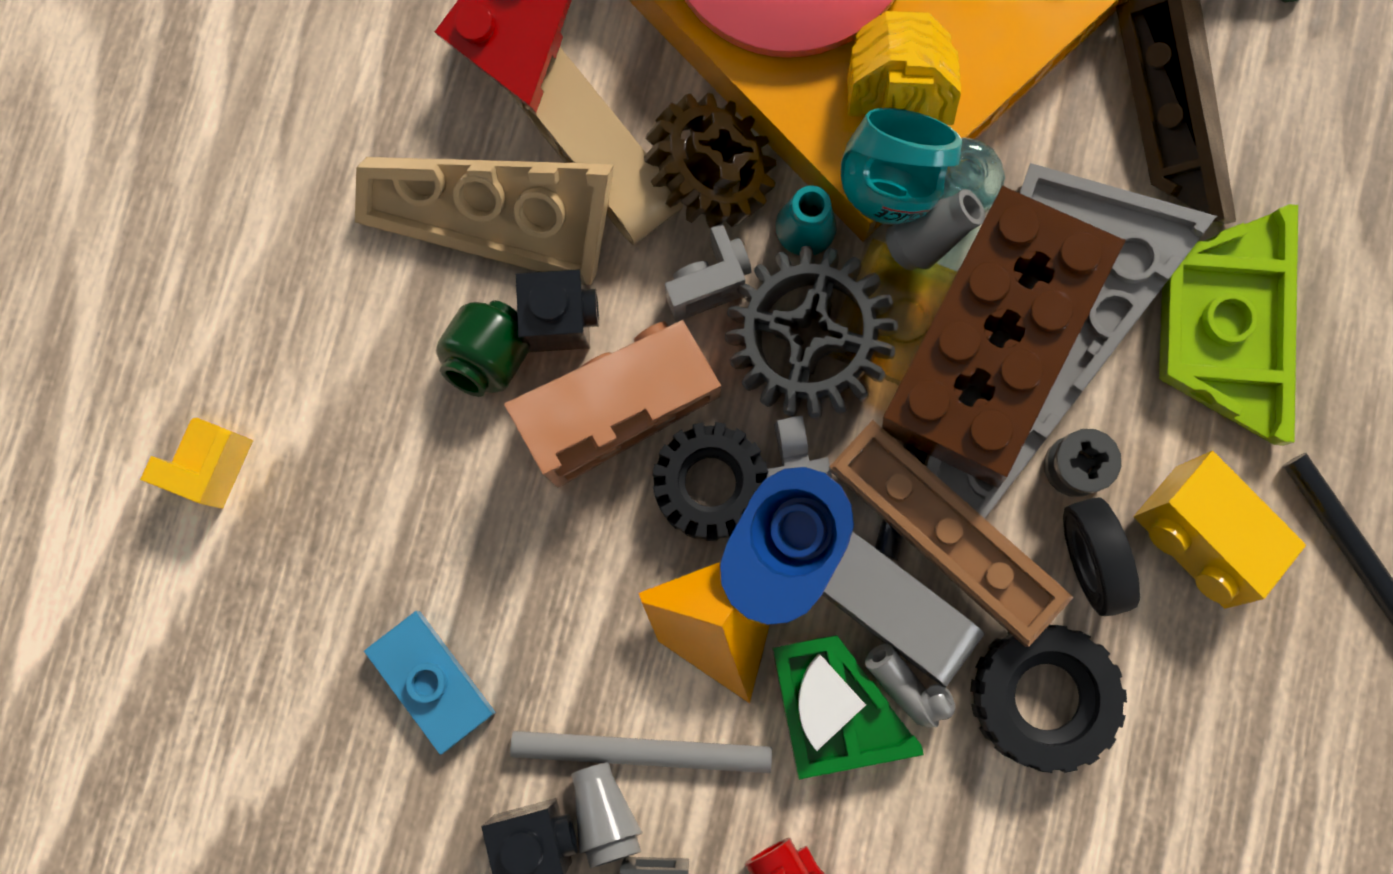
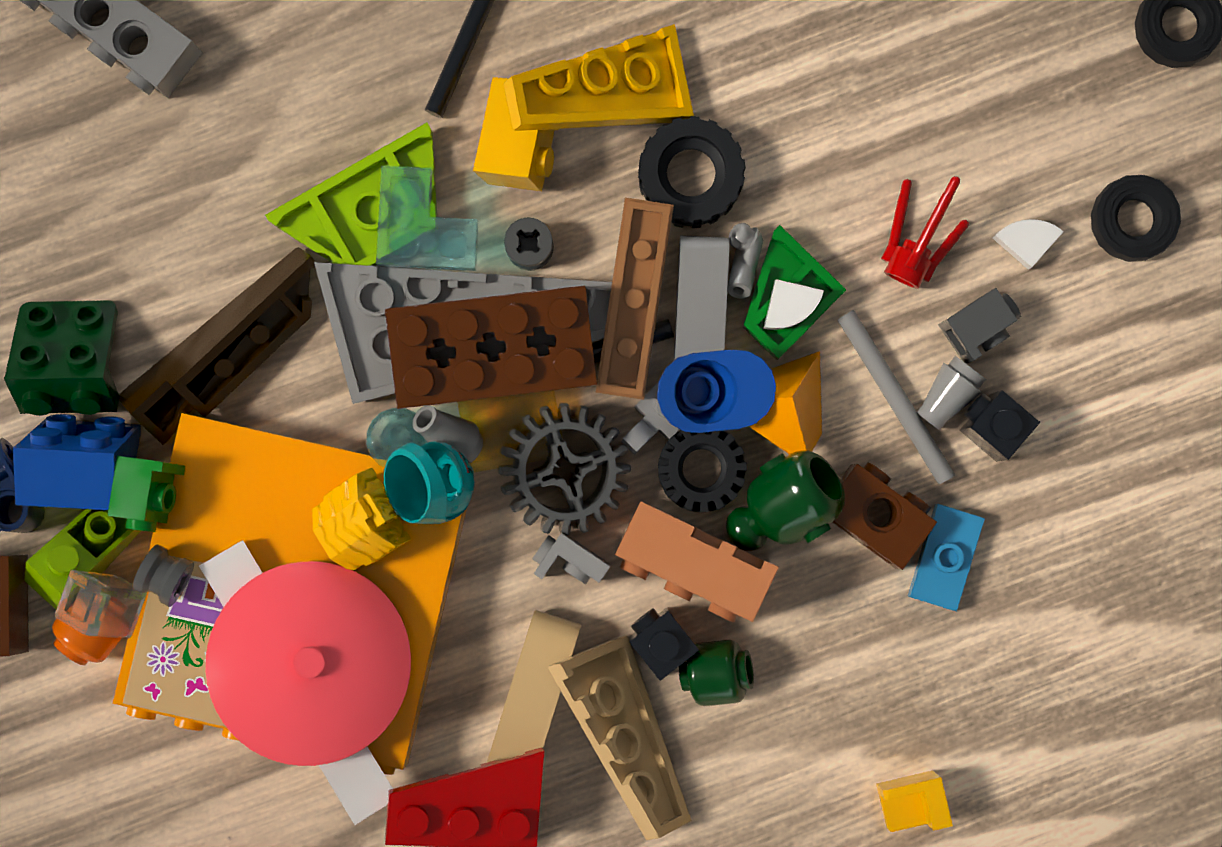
camera: 125 degrees left, 5 degrees up
(486, 638) = (908, 521): none -> reddish brown brick
(608, 546) = (788, 502): none -> dark green piece
(710, 160) = (494, 611): dark brown gear -> none
(799, 230) = (505, 522): teal cone -> none
(1101, 557) = (585, 196): black tyre -> none
(1183, 336) = (408, 232): none -> clear light blue plate
(1209, 673) = (605, 87): none -> yellow wing

